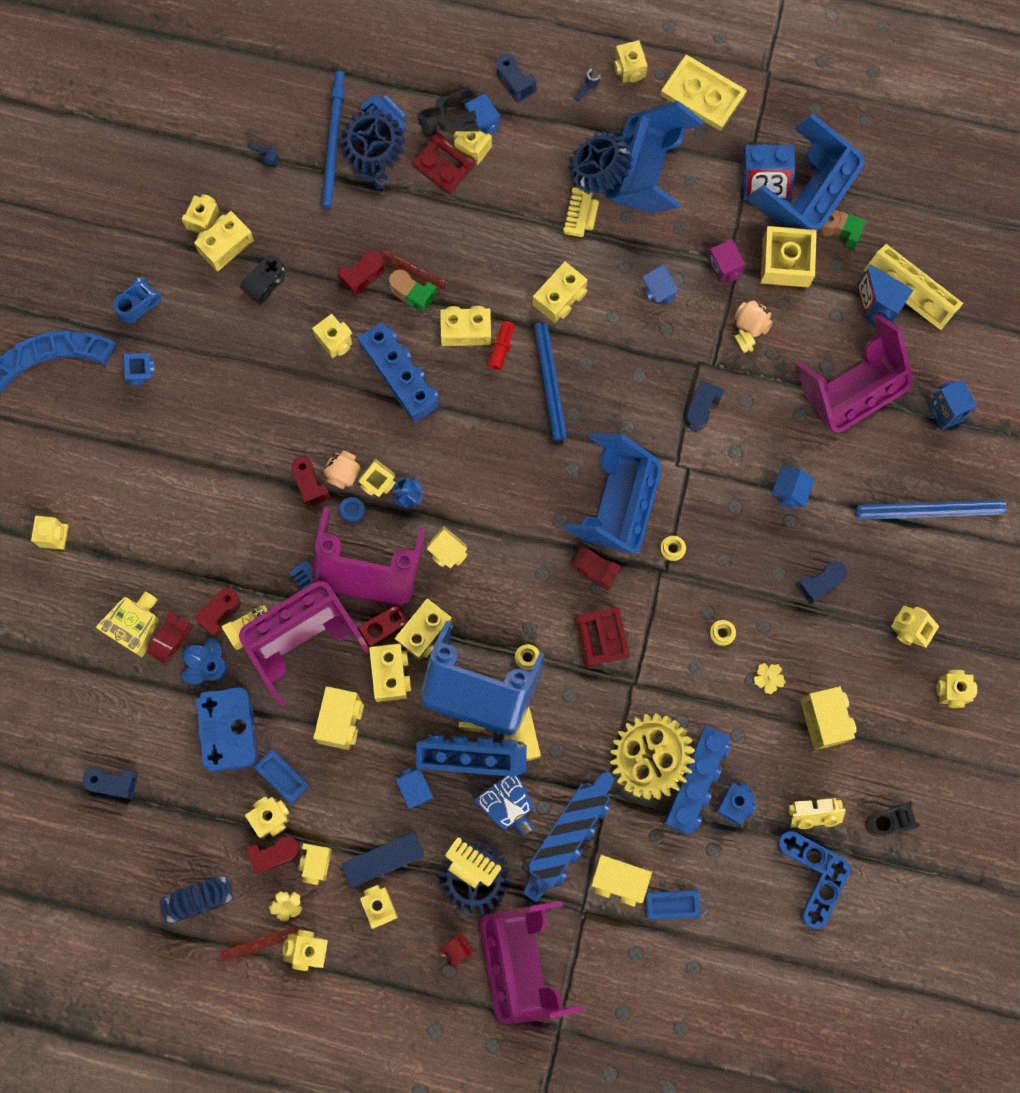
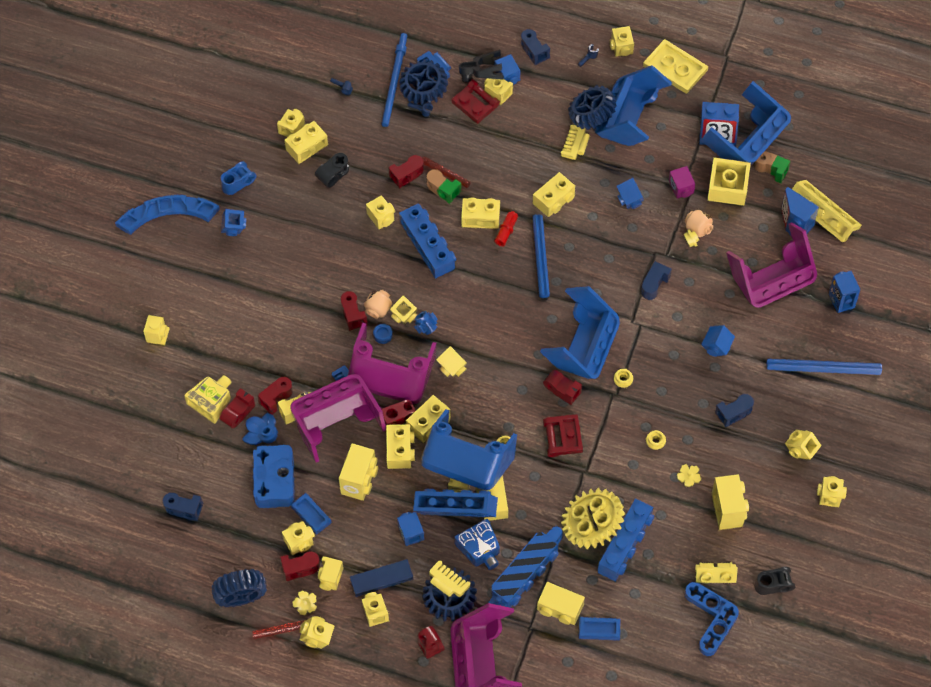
camera: 10 degrees right, 15 degrees down
(737, 803) = (655, 559): blue brick -> none

